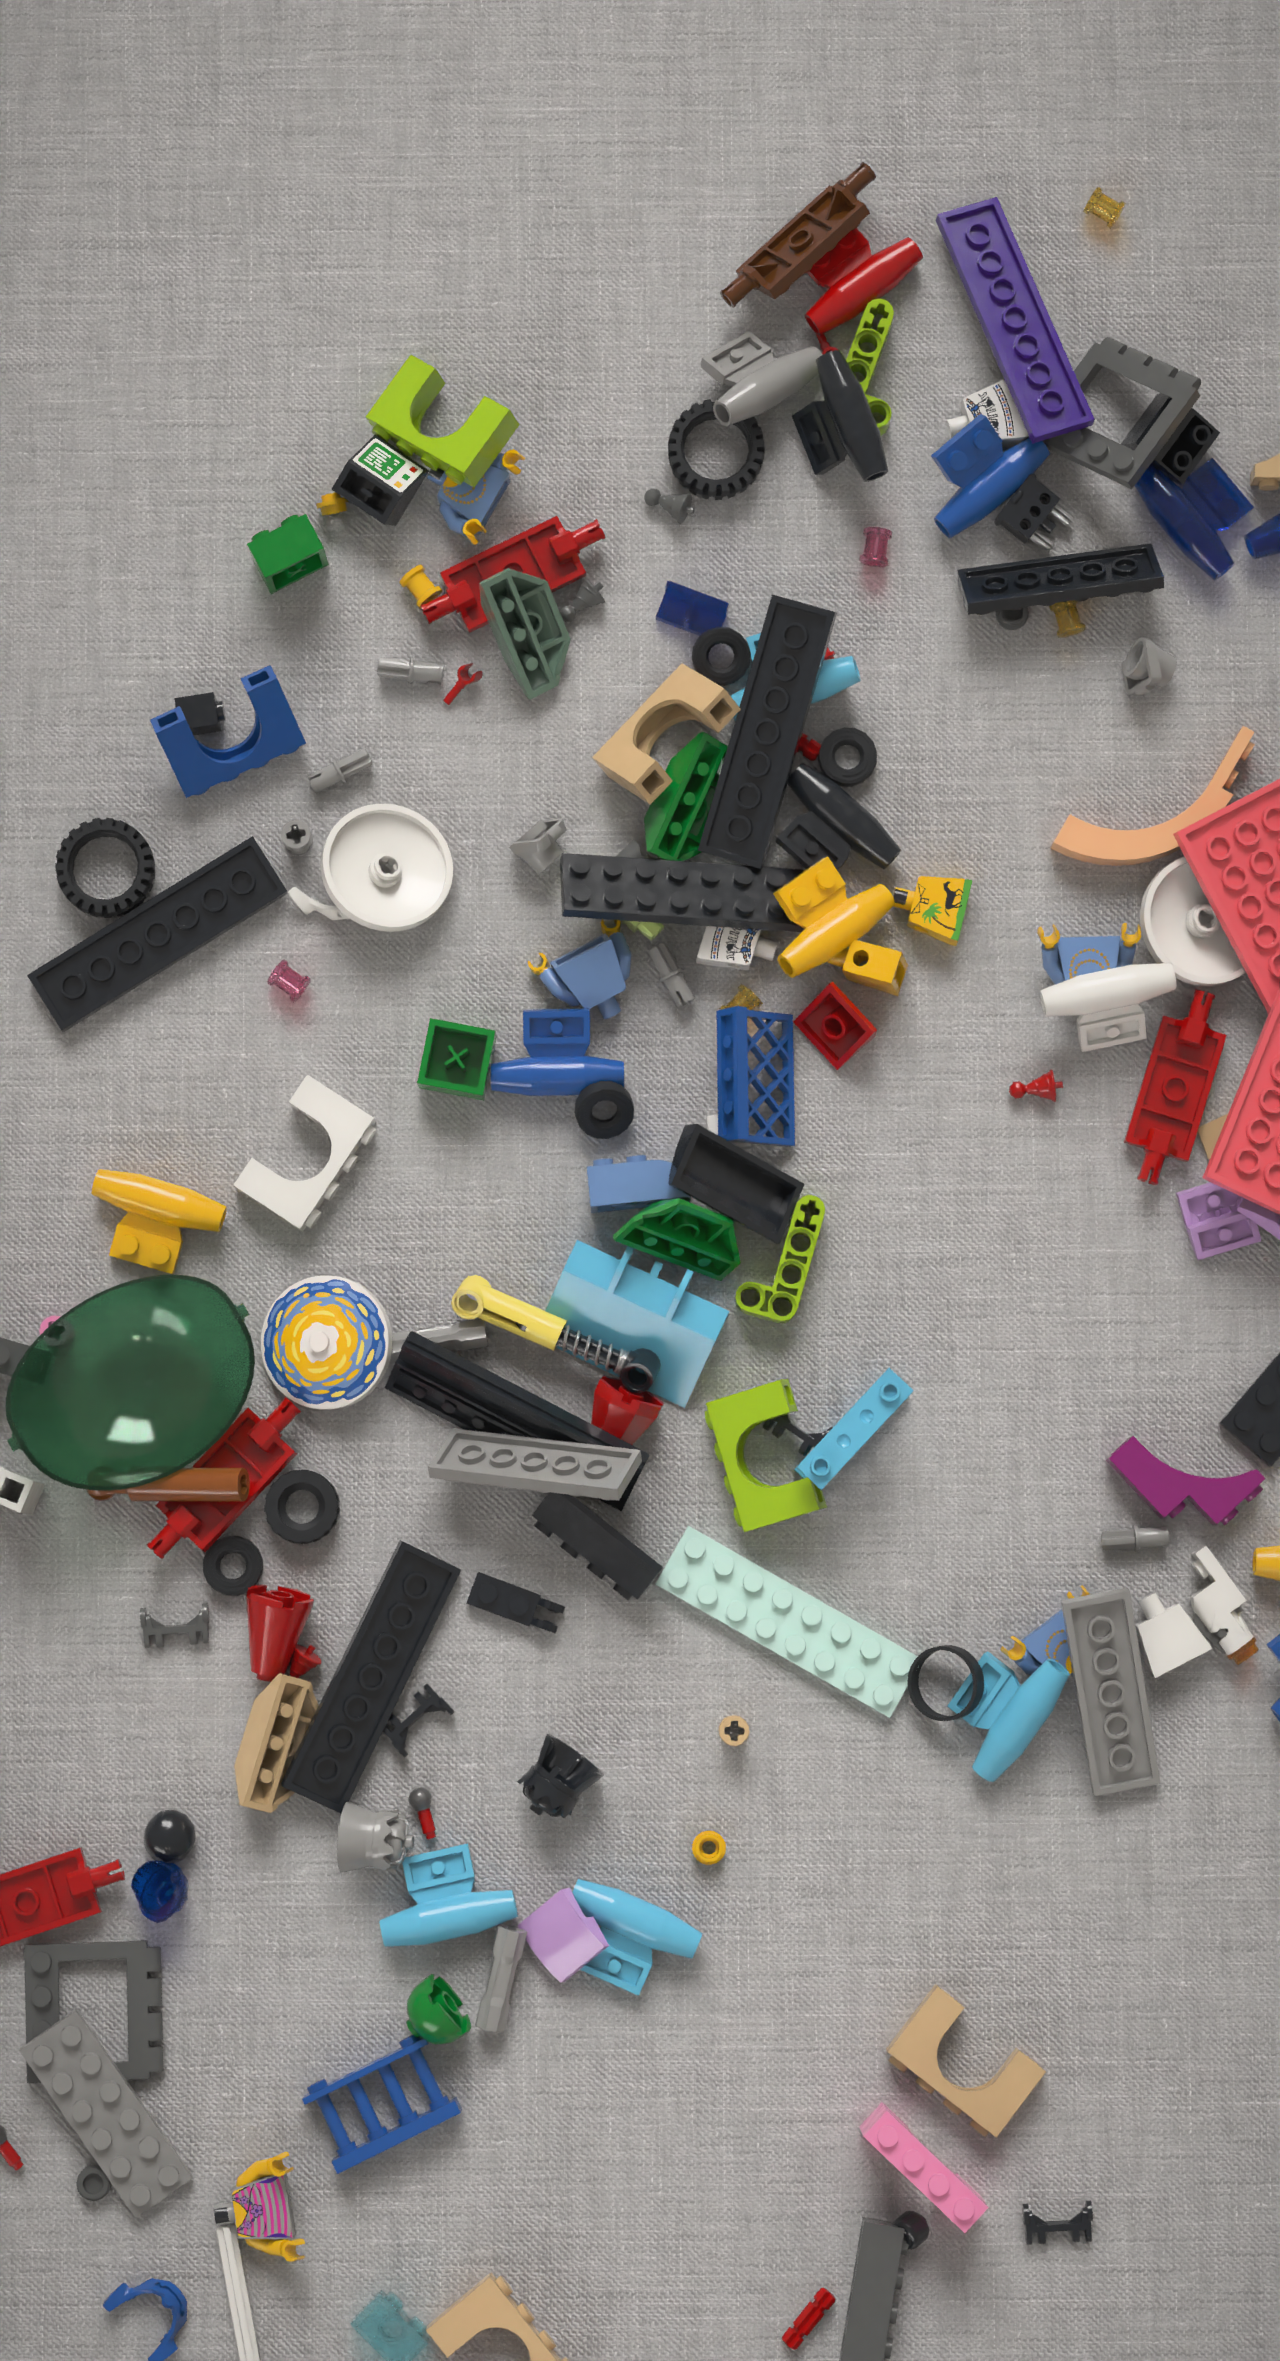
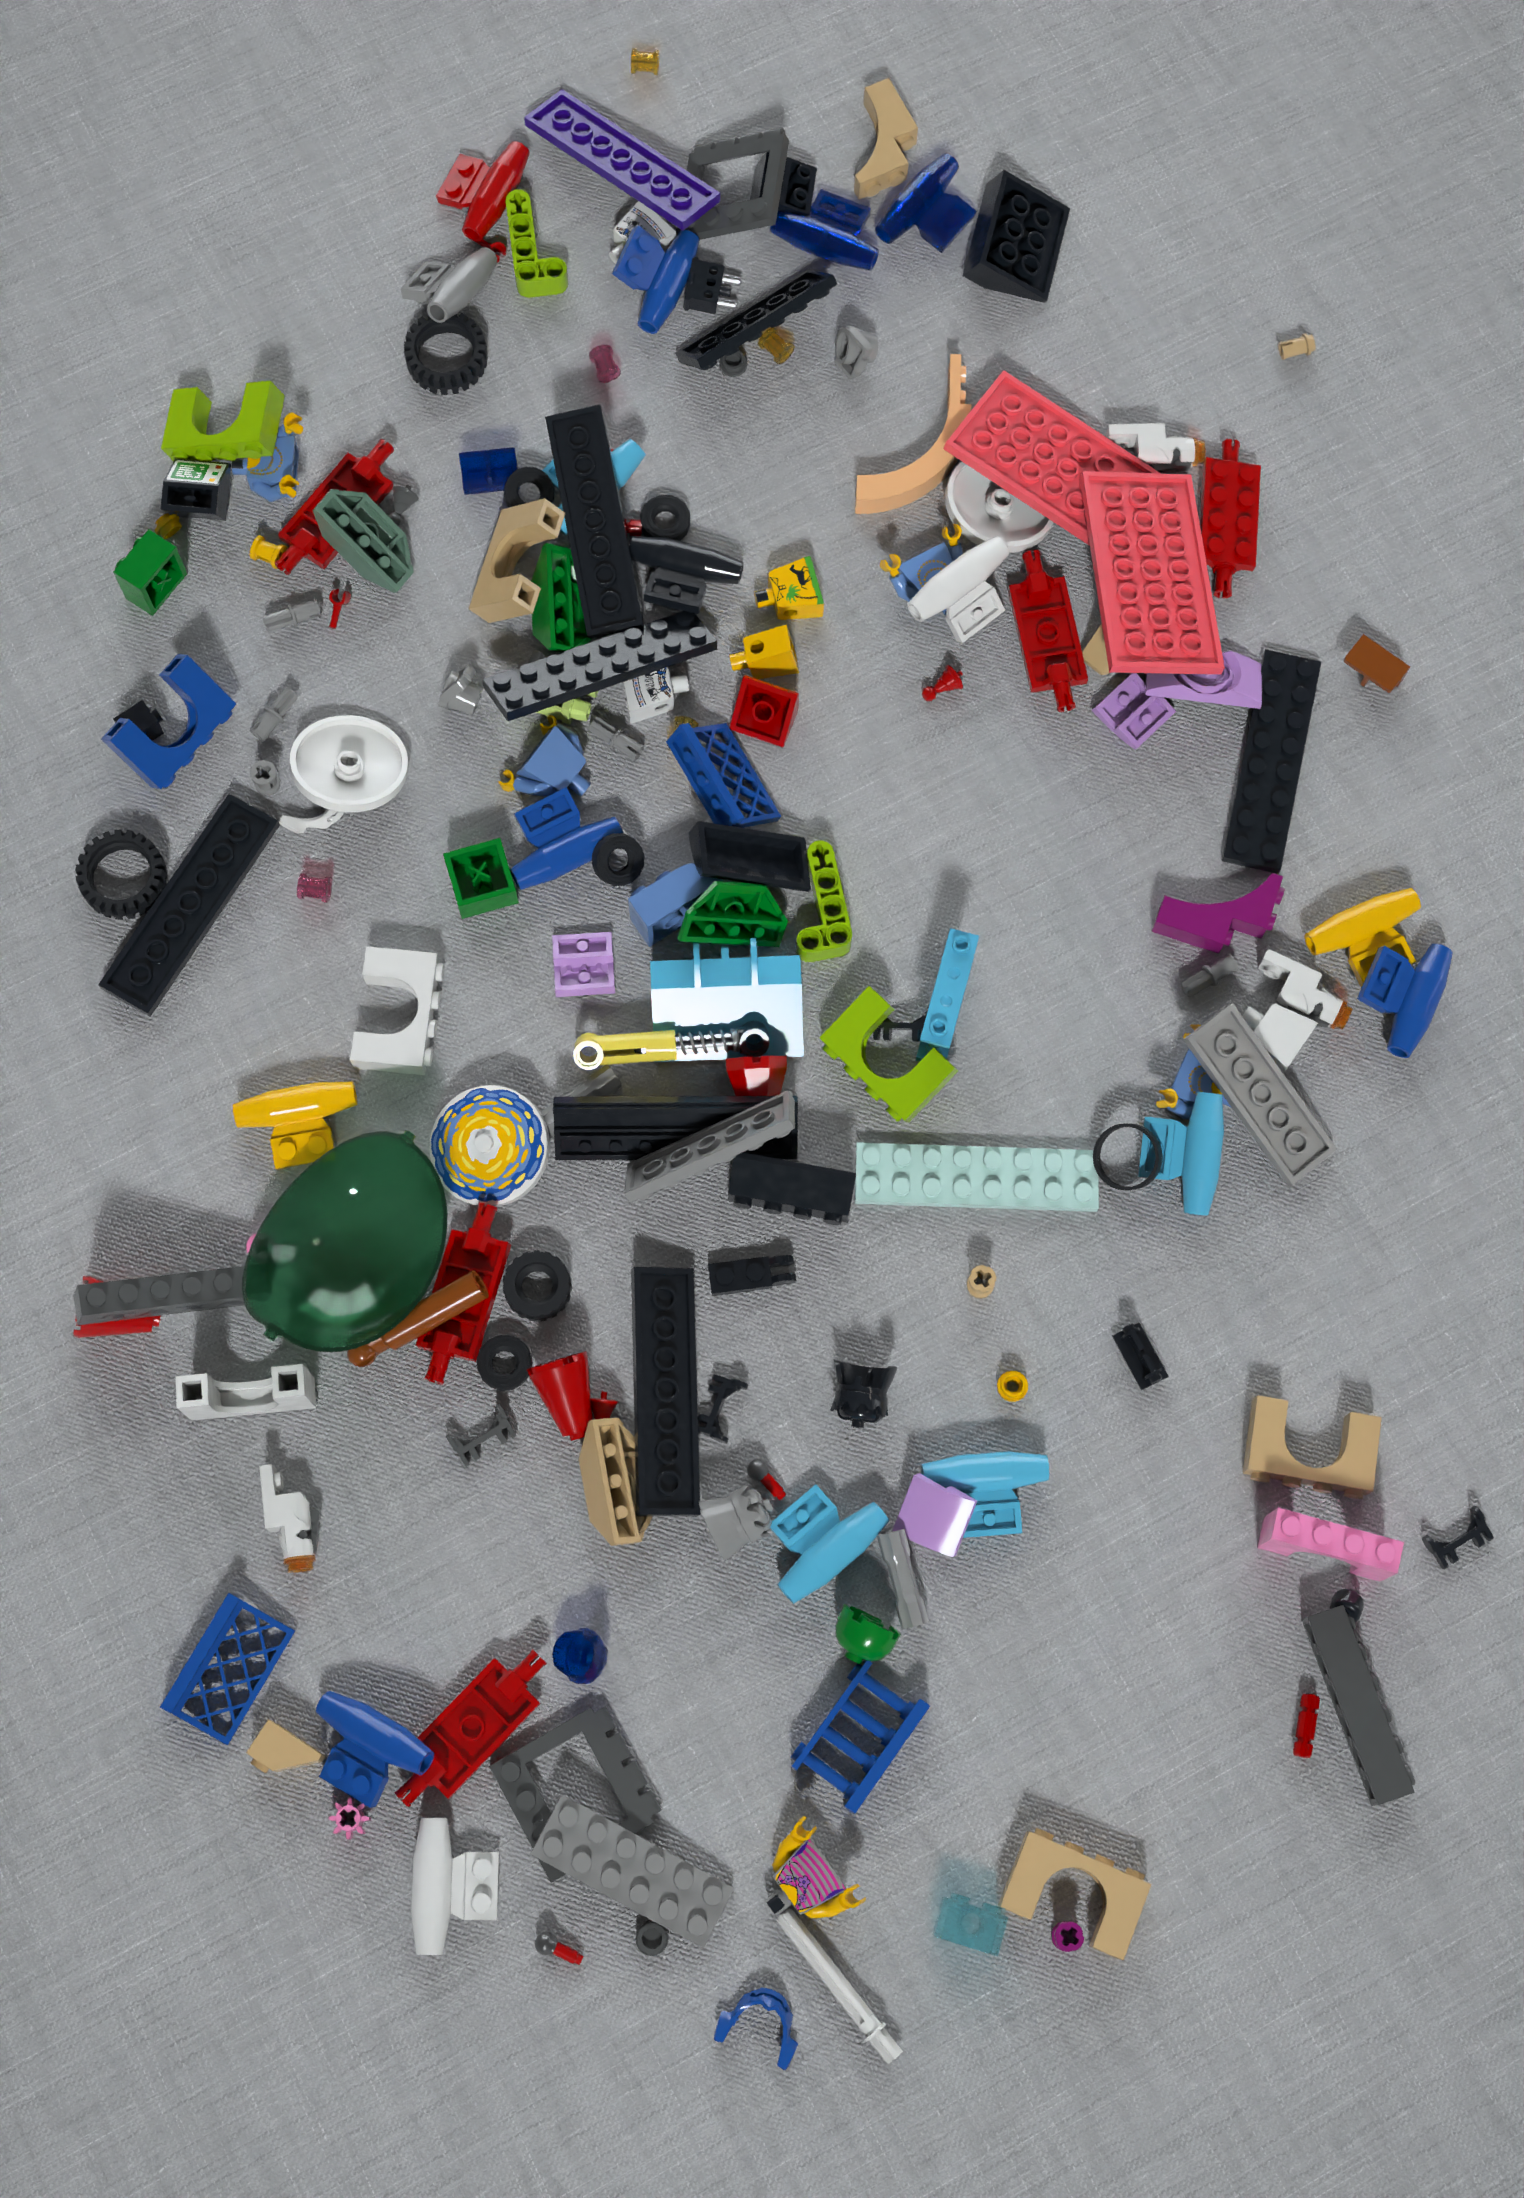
camera: 30 degrees left, 10 degrees down
(169, 1836) = (565, 1609): black hair -> none
(515, 1199) = (583, 964): none -> lavender slope
(676, 505) = (436, 405): dark grey piece -> none
(803, 239) = (434, 176): reddish brown plate -> none
(829, 919) = (719, 633): yellow plate -> none
(841, 423) = (531, 286): black plate -> none
(849, 1884) = (1140, 1355): none -> black hinge

